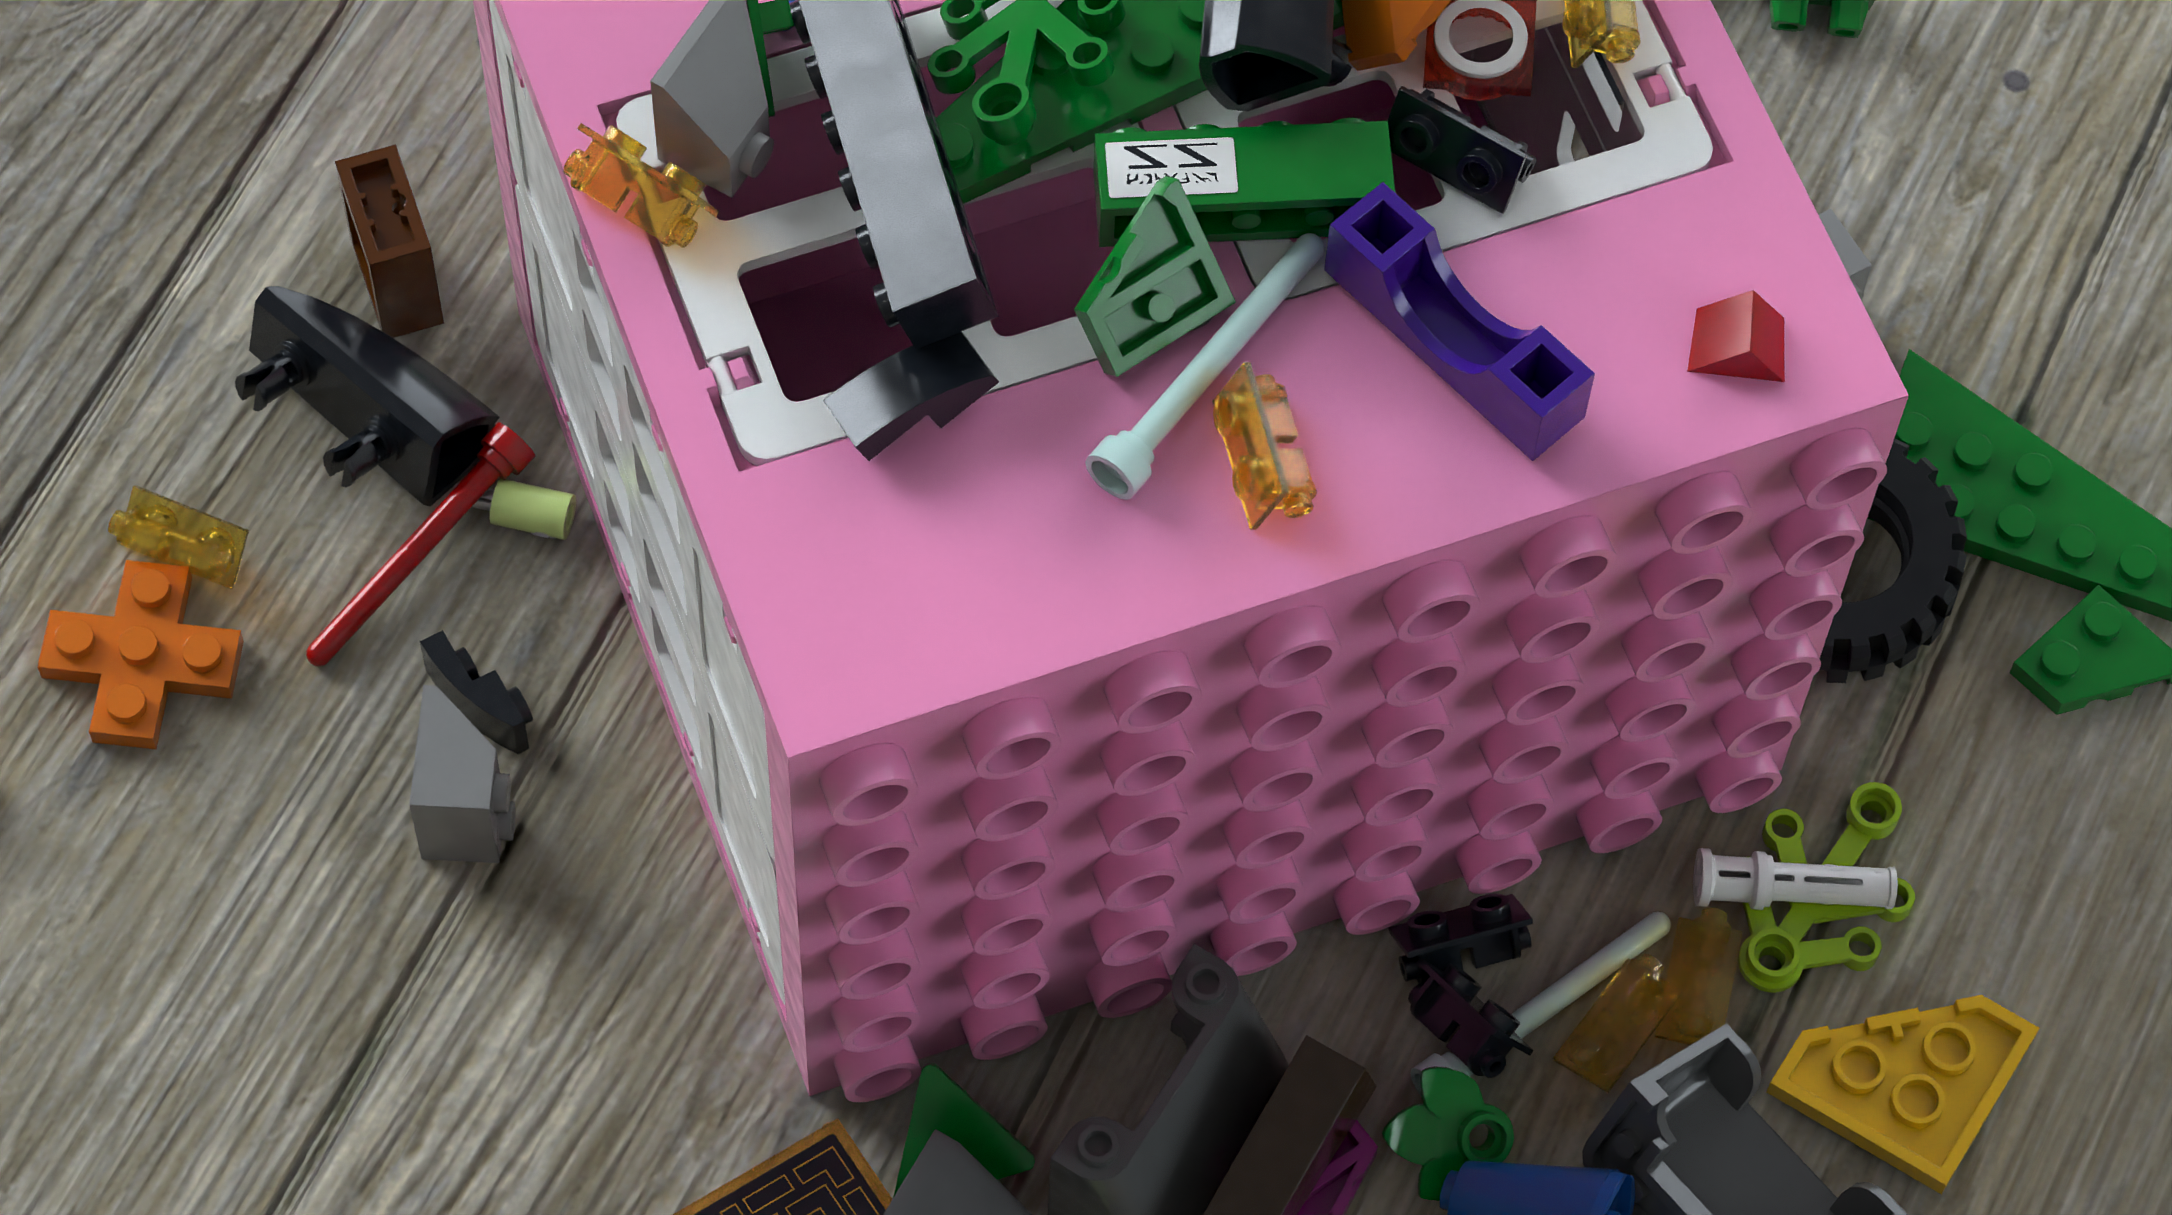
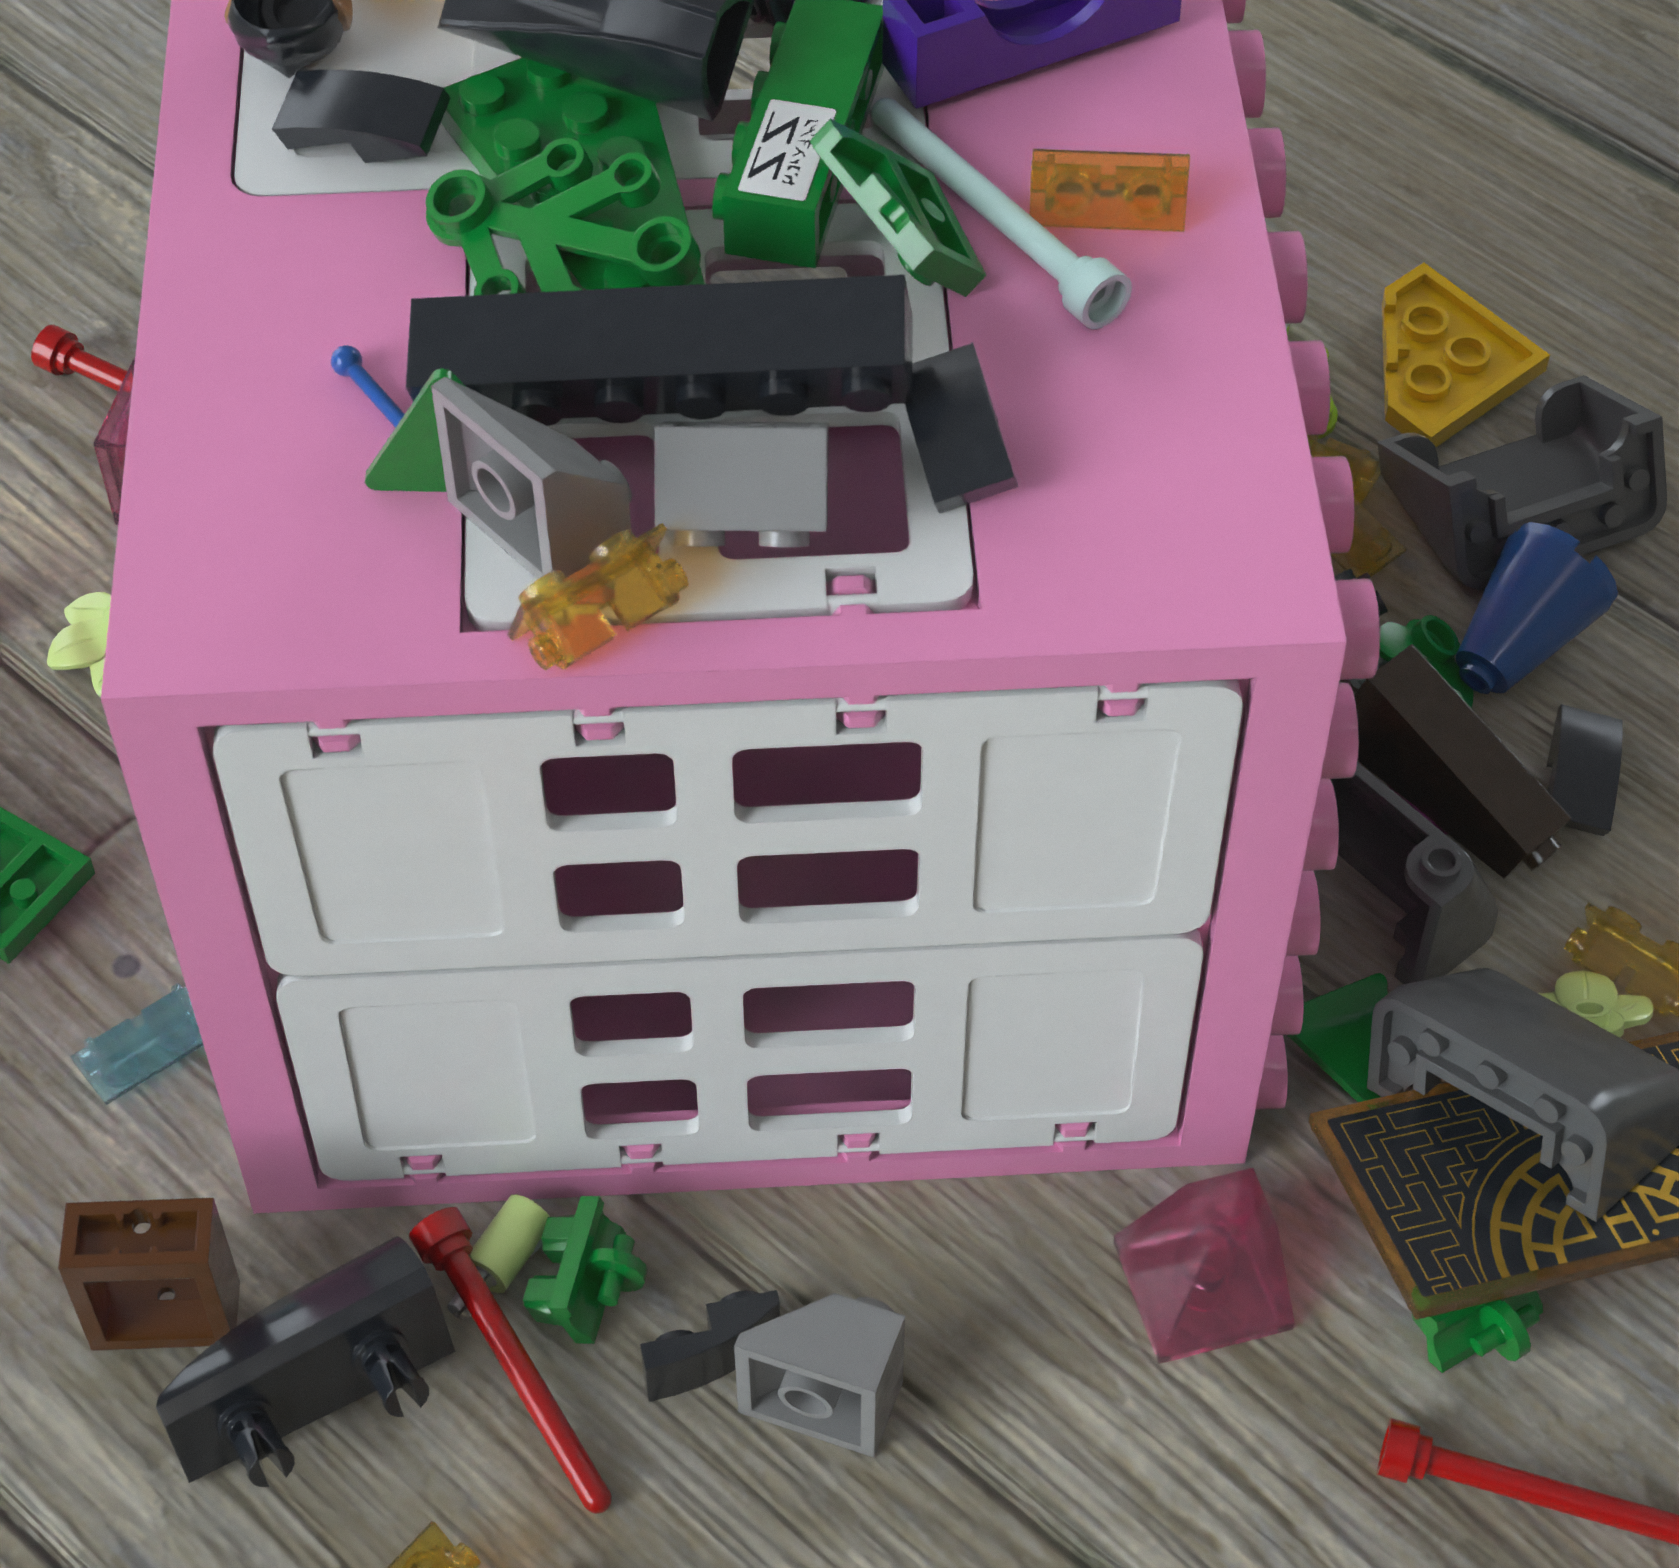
camera: 70 degrees left, 10 degrees down
(520, 574) = (592, 1271): none -> green hips
(671, 1082) = (1207, 1267): none -> clear pink slope
(792, 246) = (741, 480): none -> light grey slope

